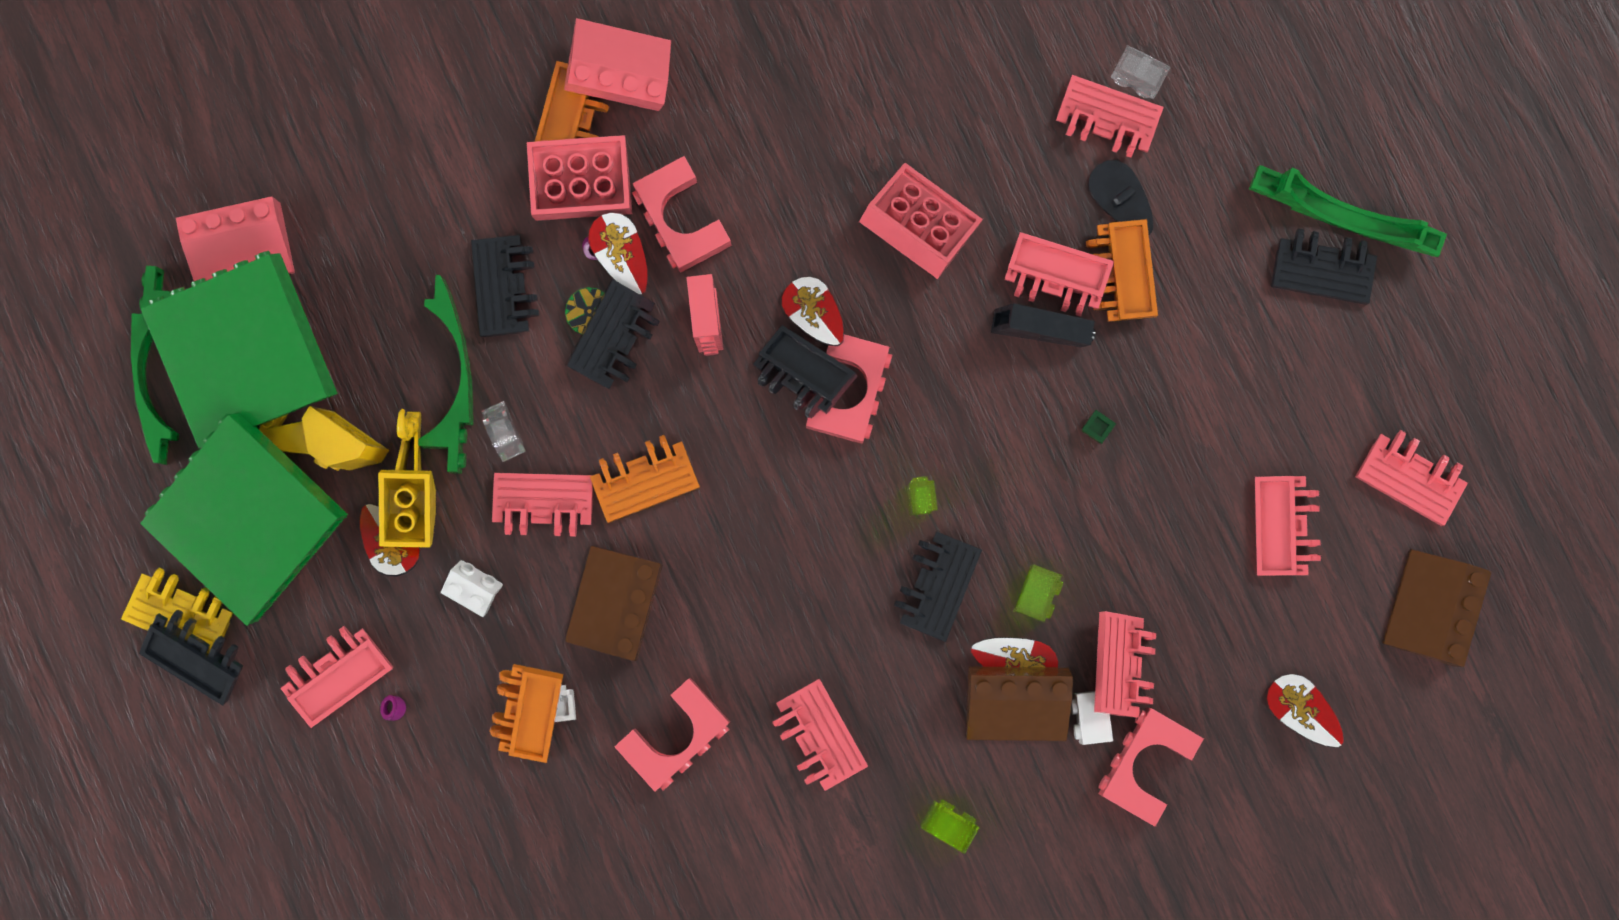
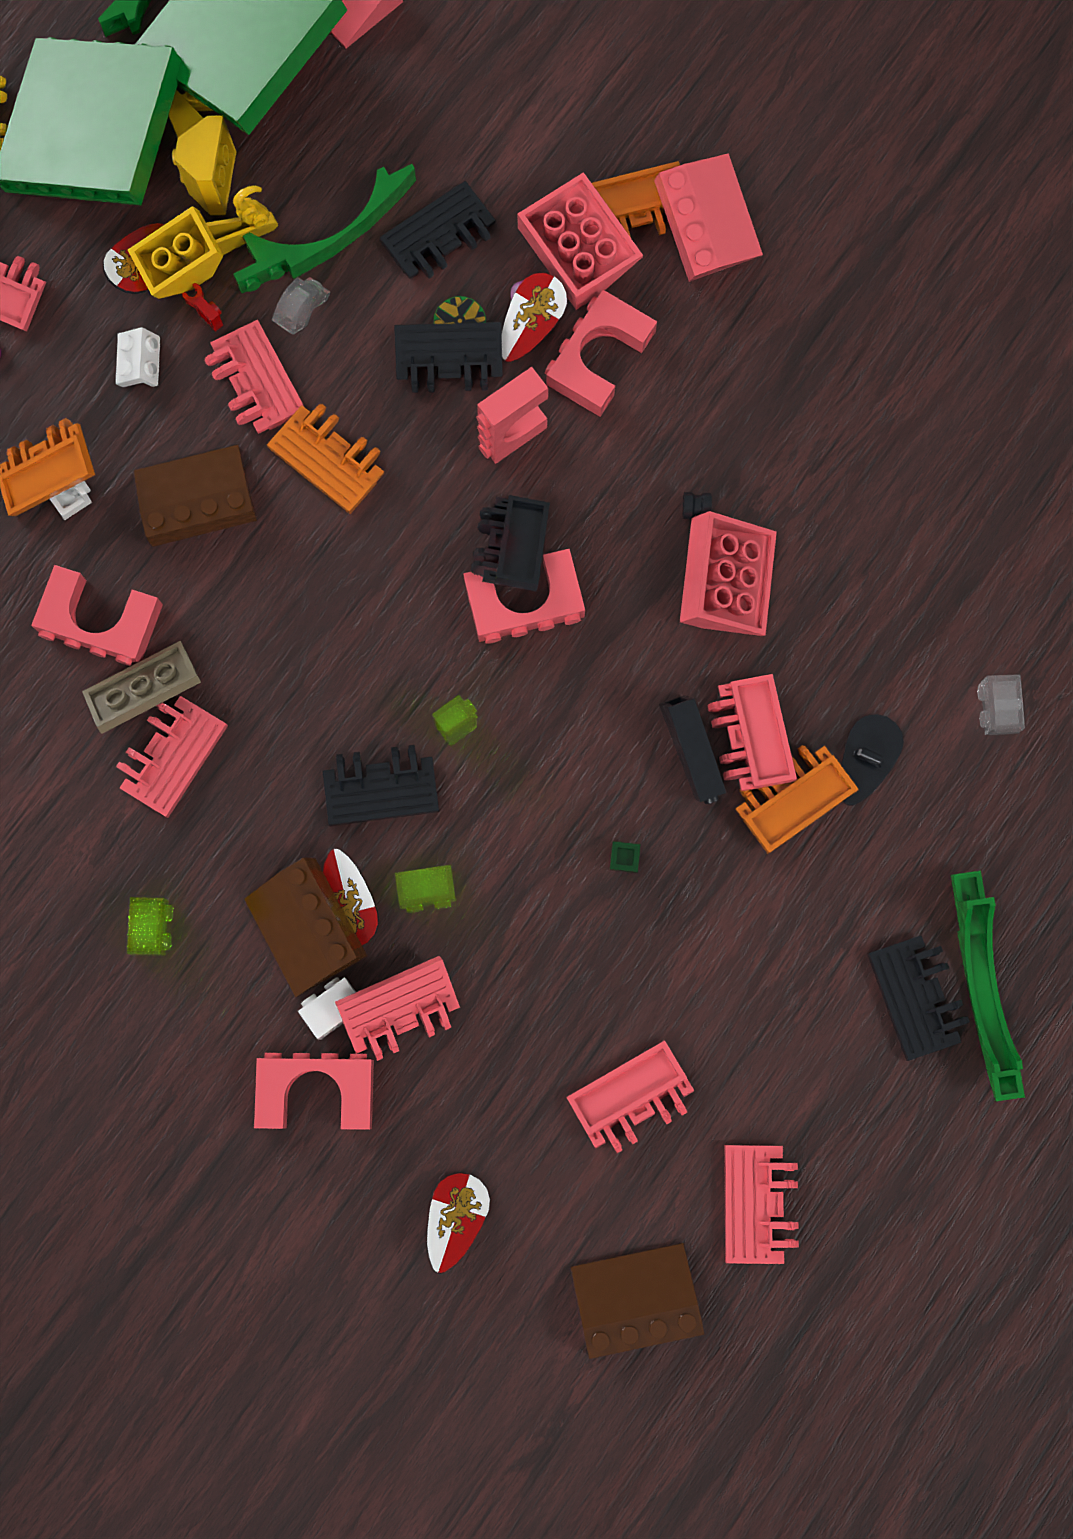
camera: 60 degrees right, 5 degrees down
(464, 509) = (208, 311): none -> red plate
(754, 730) = (141, 687): none -> dark tan plate
(814, 310) = (580, 523): shield -> none
(850, 211) = (696, 504): none -> black wheel
(1110, 113) = (944, 698): coral hinge -> none

